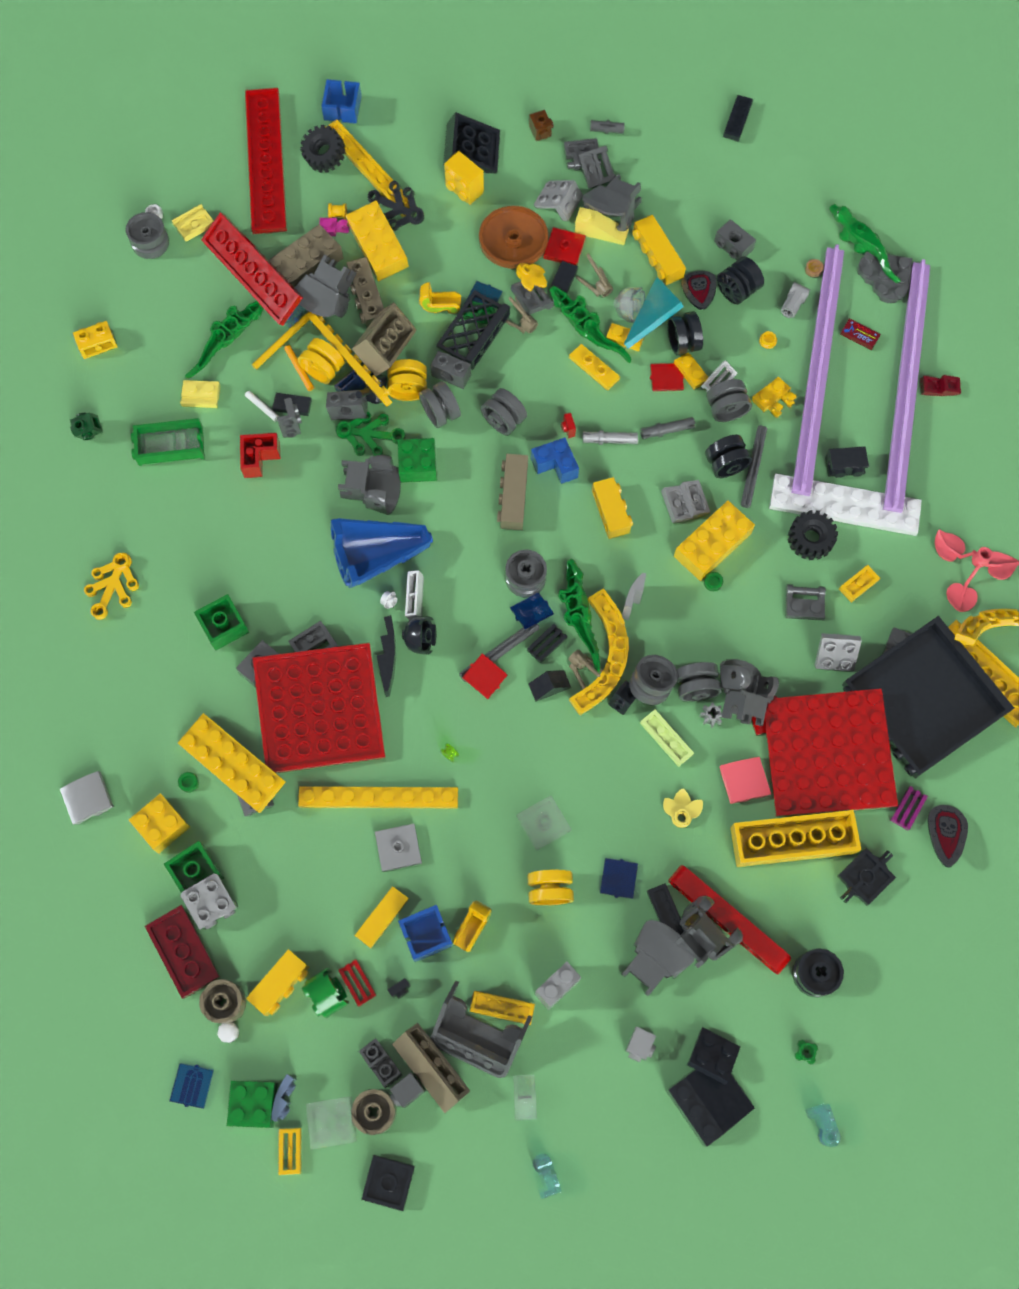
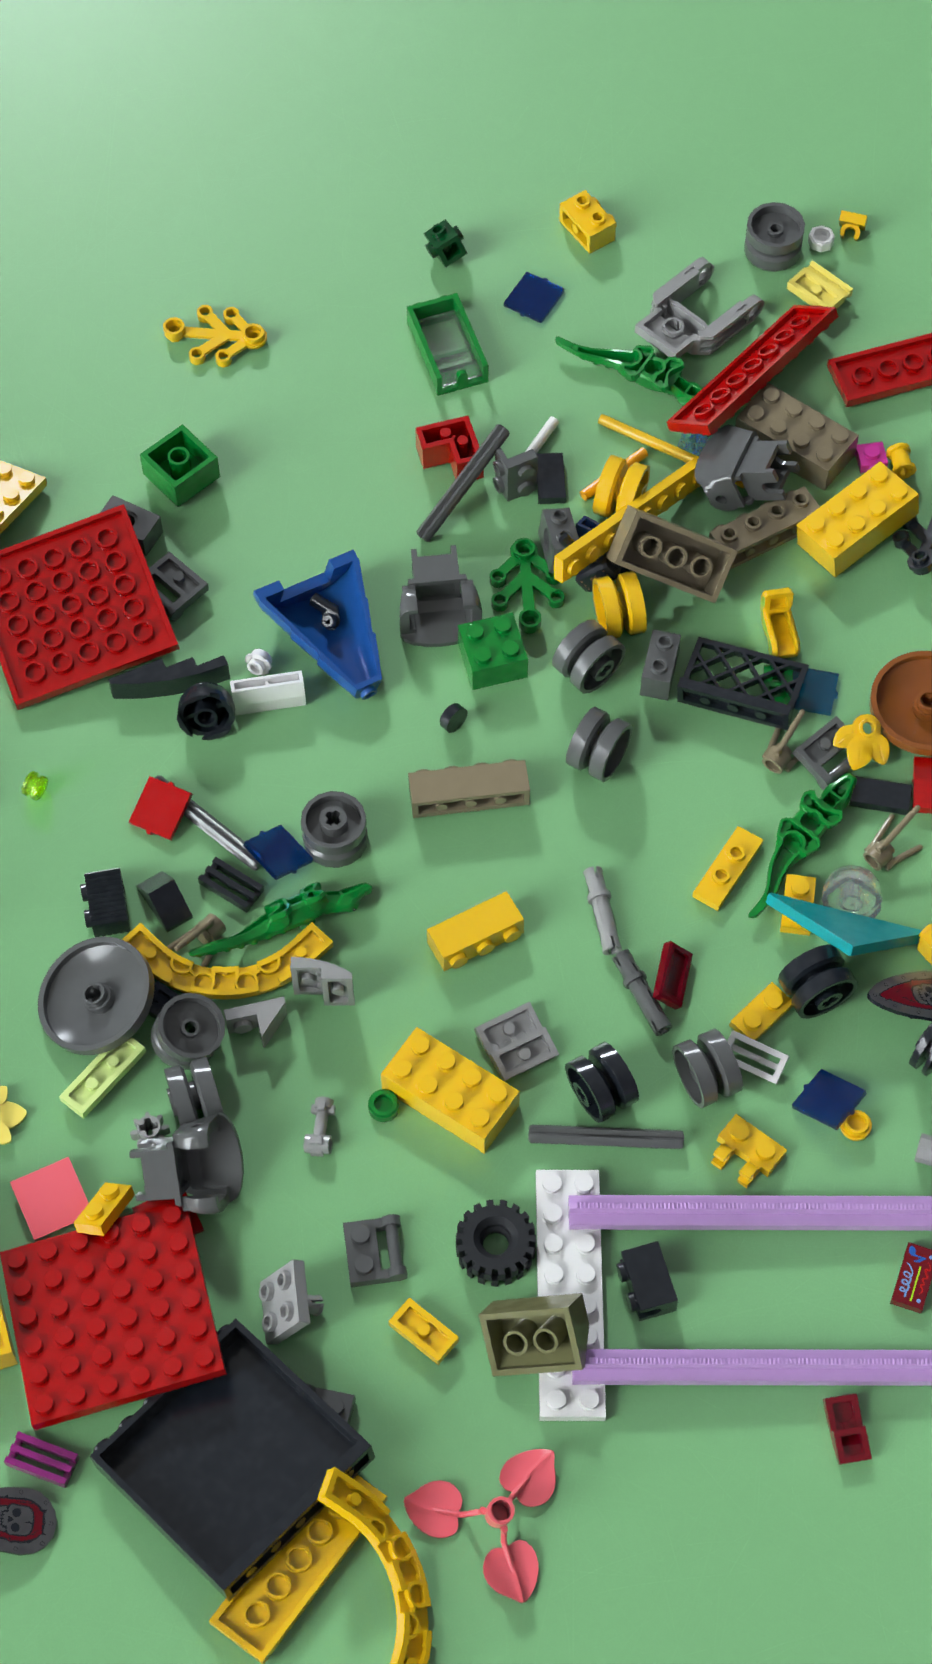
camera: 80 degrees right, 10 degrees down
(143, 386) = (534, 297): none -> clear blue piece
(148, 192) = (853, 221): none -> yellow tile
(199, 307) = (678, 330): none -> light grey plate
(200, 394) = (538, 365): light yellow plate -> none
(290, 449) = (462, 483): none -> dark grey axle
(363, 549) = (328, 609): none -> black arm
(459, 493) = (453, 717): none -> black tile
(546, 719) = (106, 902): none -> black brick
(555, 456) = (544, 838): blue brick -> none
(568, 425) = (607, 846): red plate -> none
(616, 732) = (96, 995): none -> dark grey dish
(647, 636) = (264, 1014): none -> light grey slope
(660, 409) = (672, 975): none -> dark red tile
(666, 377) = (739, 978): red piece -> none
(733, 621) = (318, 1142): none -> light grey bar
(752, 348) = (829, 1099): none -> clear blue piece
(761, 747) = (104, 1209): none -> yellow plate
(876, 520) = (536, 1334): none -> olive slope

